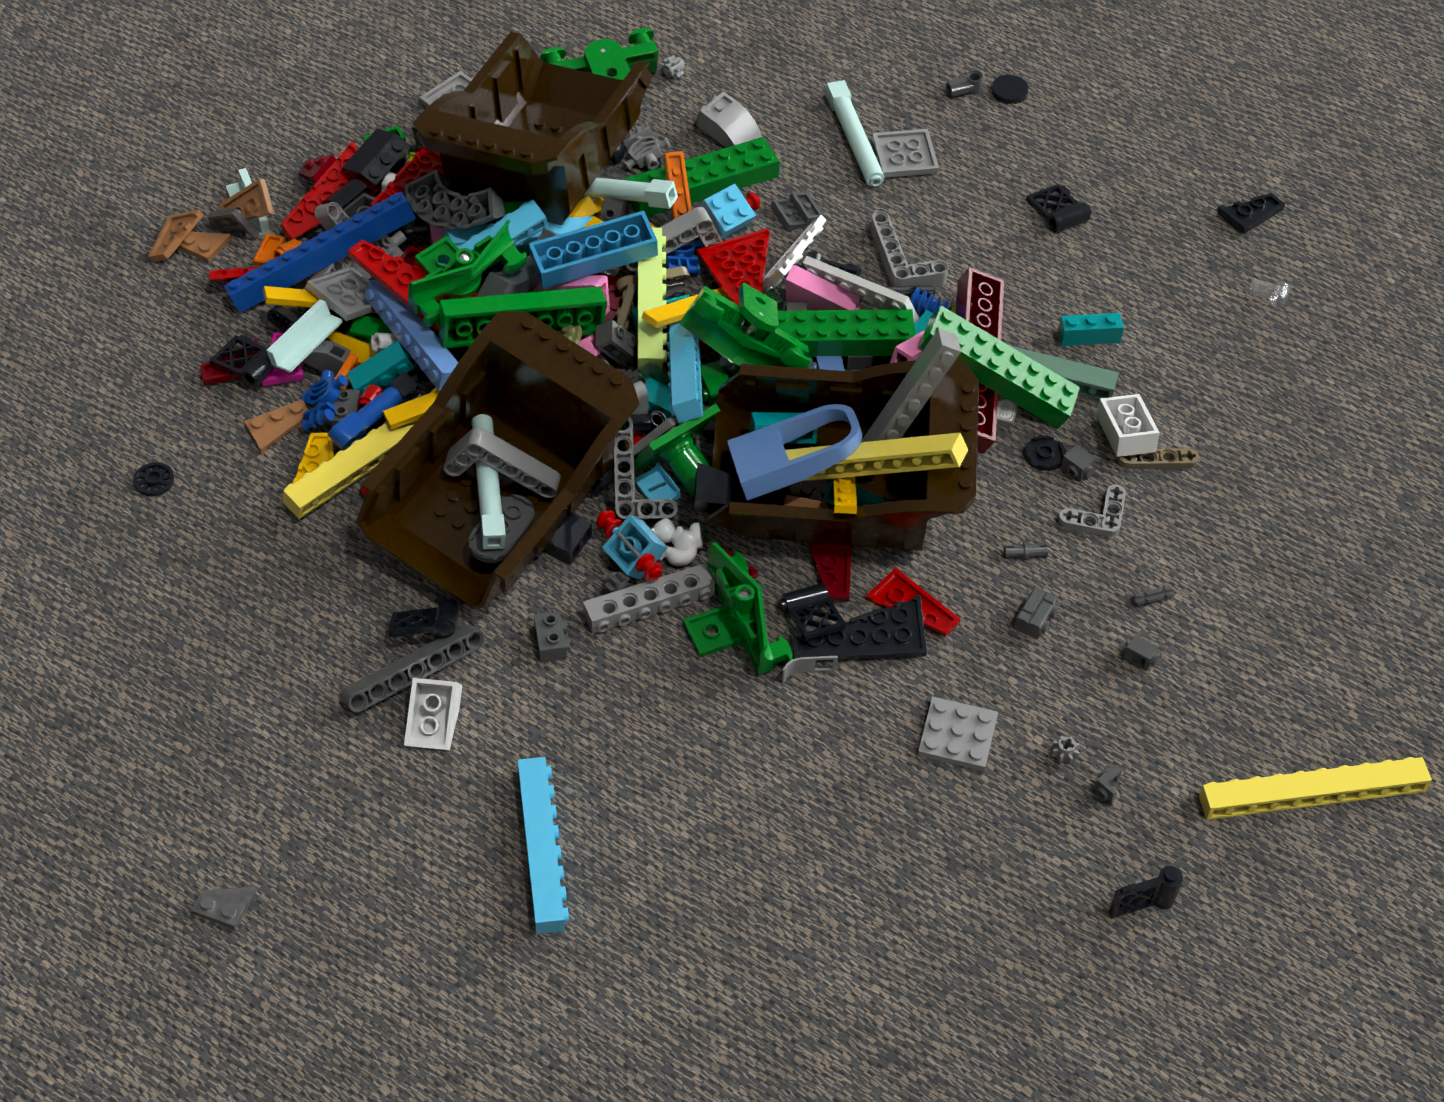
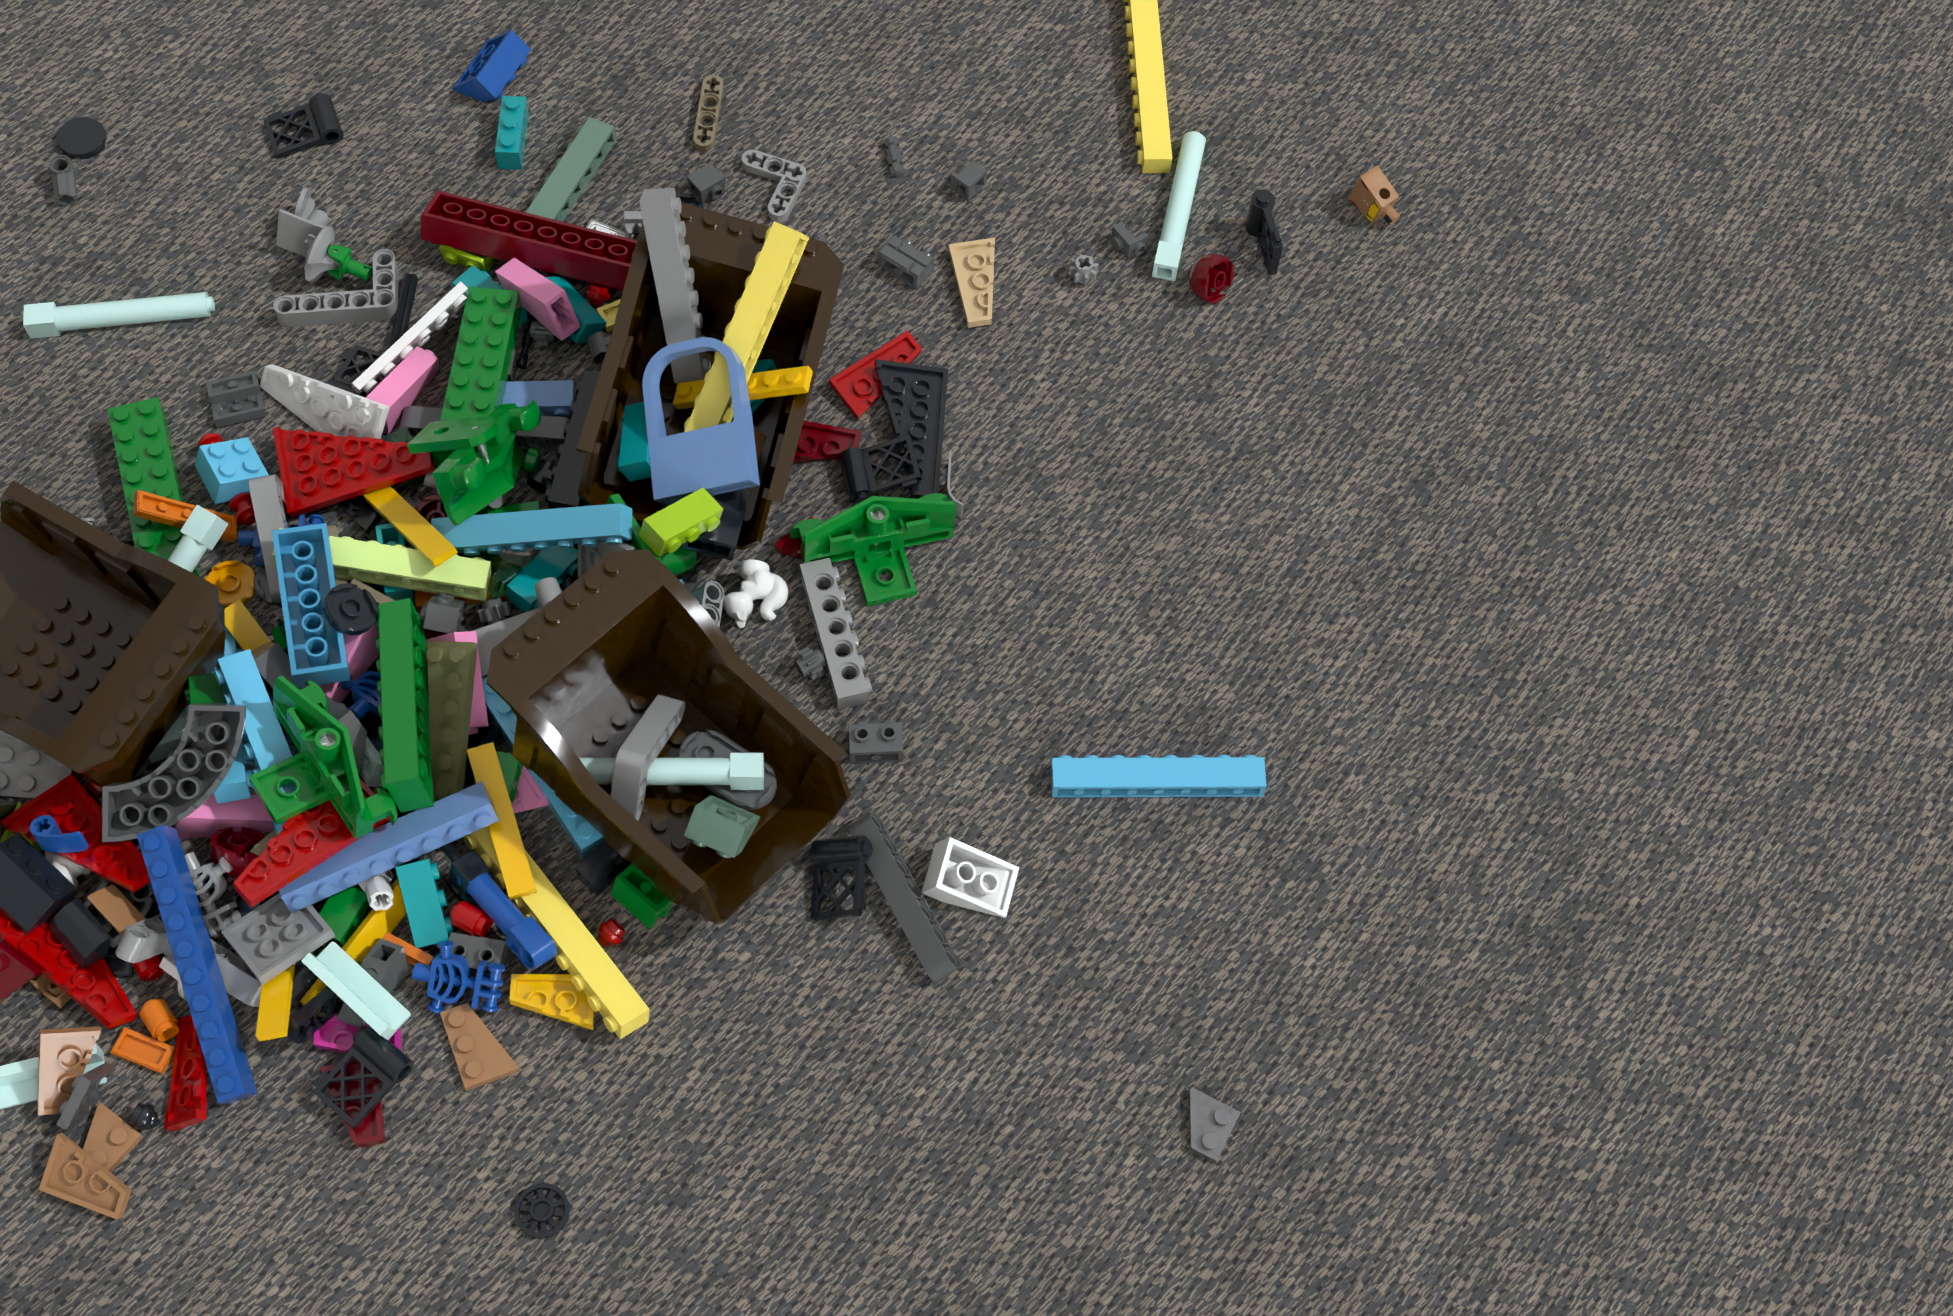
camera: 85 degrees left, 10 degrees up
(220, 257) = (144, 1117): none -> black plate
(358, 203) = (115, 908): none -> medium nougat slope
(408, 161) = (53, 840): none -> blue panel
(447, 523) = (721, 826): none -> sand green slope
(588, 266) = (350, 609): none -> black tile
(632, 545) = (771, 633): medium azure brick -> none
(699, 451) = (681, 522): none -> lime brick
(727, 121) = (60, 451): light grey piece -> none
(905, 153) = (167, 264): light grey plate -> none
(922, 303) = (437, 281): blue piece -> none
(940, 226) = (310, 236): none -> light grey piece
(958, 733) = (1048, 362): light grey plate -> none
(1007, 369) = (575, 218): brick -> none
(1023, 421) = (632, 222): none -> light grey tile
(1036, 666) = (974, 278): none -> tan wing
(1081, 849) = (1208, 273): none -> dark red cylinder
(1100, 818) = (1179, 206): none -> light aqua brick
(1128, 425) = (668, 124): white brick -> none
(1154, 310) = (493, 67): none -> blue slope
(1221, 994) = (1375, 197): none -> medium nougat torso

